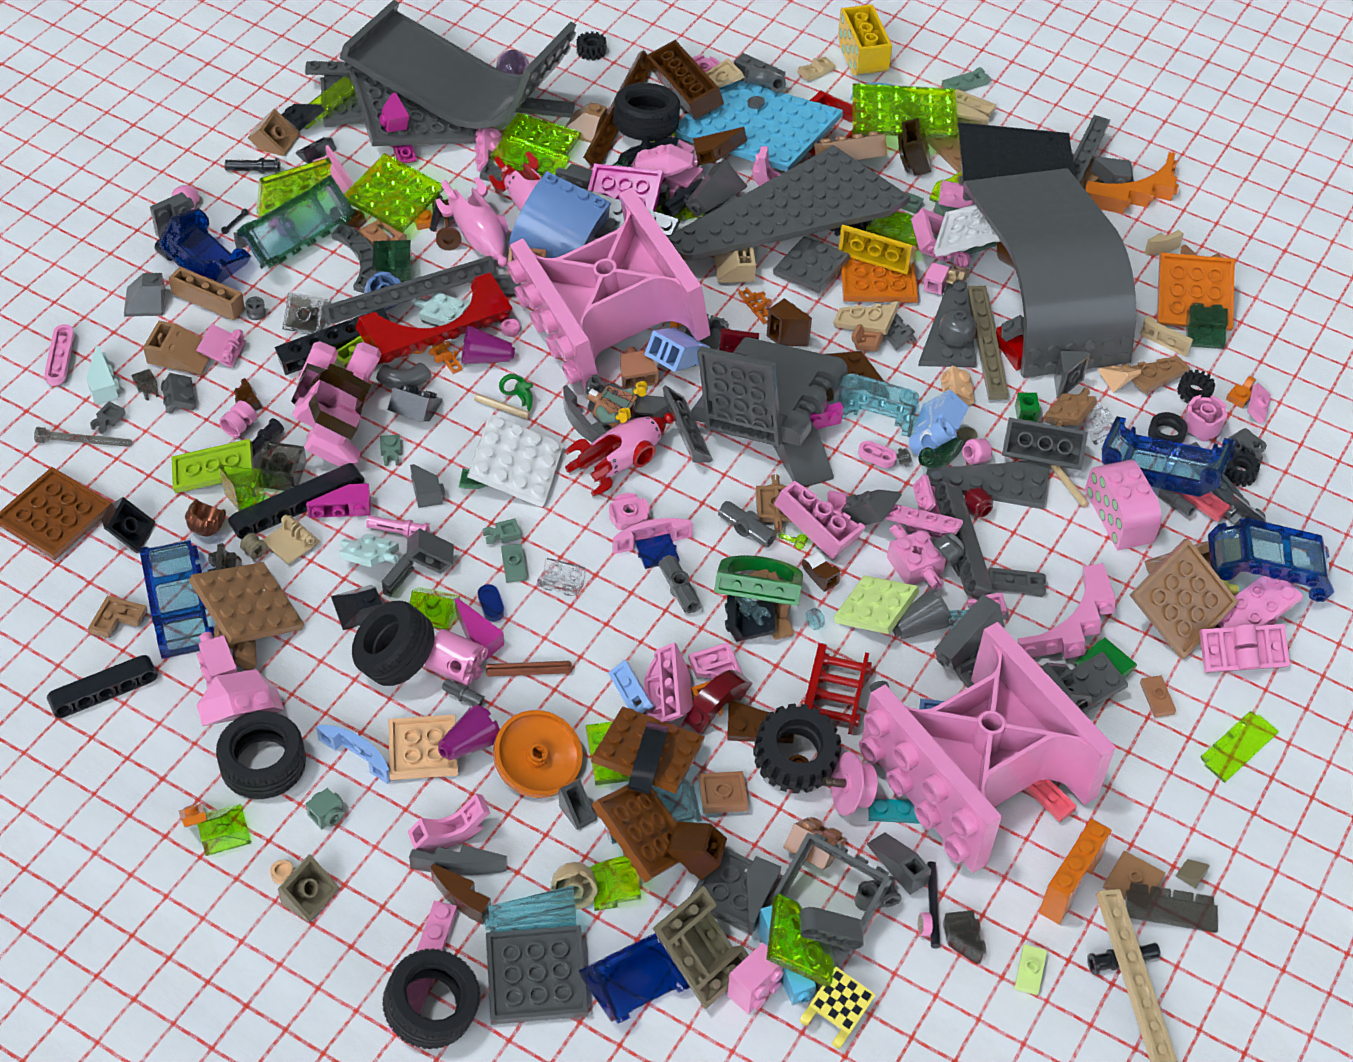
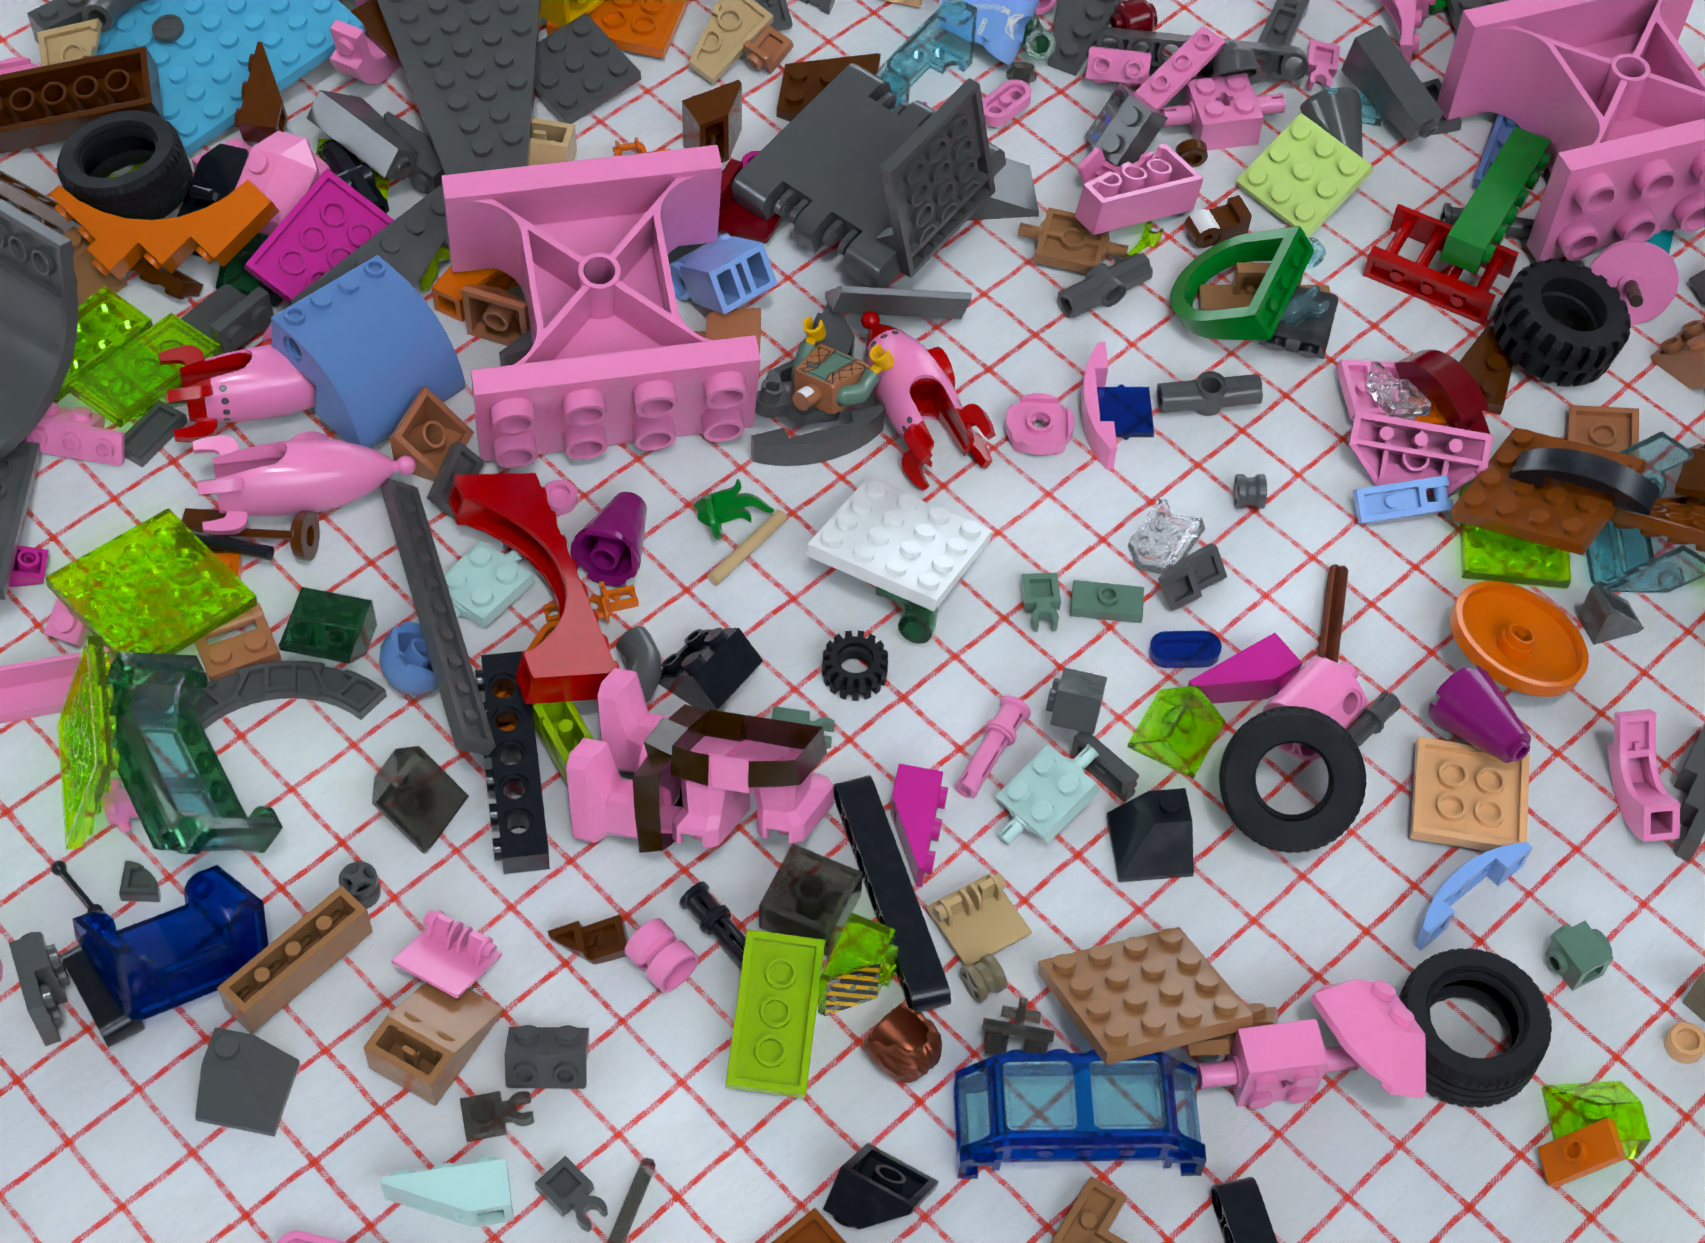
camera: 75 degrees left, 5 degrees up
(426, 487) = (912, 689): dark grey slope -> none
(436, 452) = (858, 648): none -> black tyre
(538, 593) = (1190, 575): none -> dark grey slope
(598, 127) = (213, 232): none -> orange arch
(611, 613) = (1250, 491): none -> dark grey wheel
(698, 663) = (1395, 396): none -> clear bracket
(855, 691) = (1496, 201): none -> green brick
(875, 549) = (1192, 151): none -> reddish brown tile

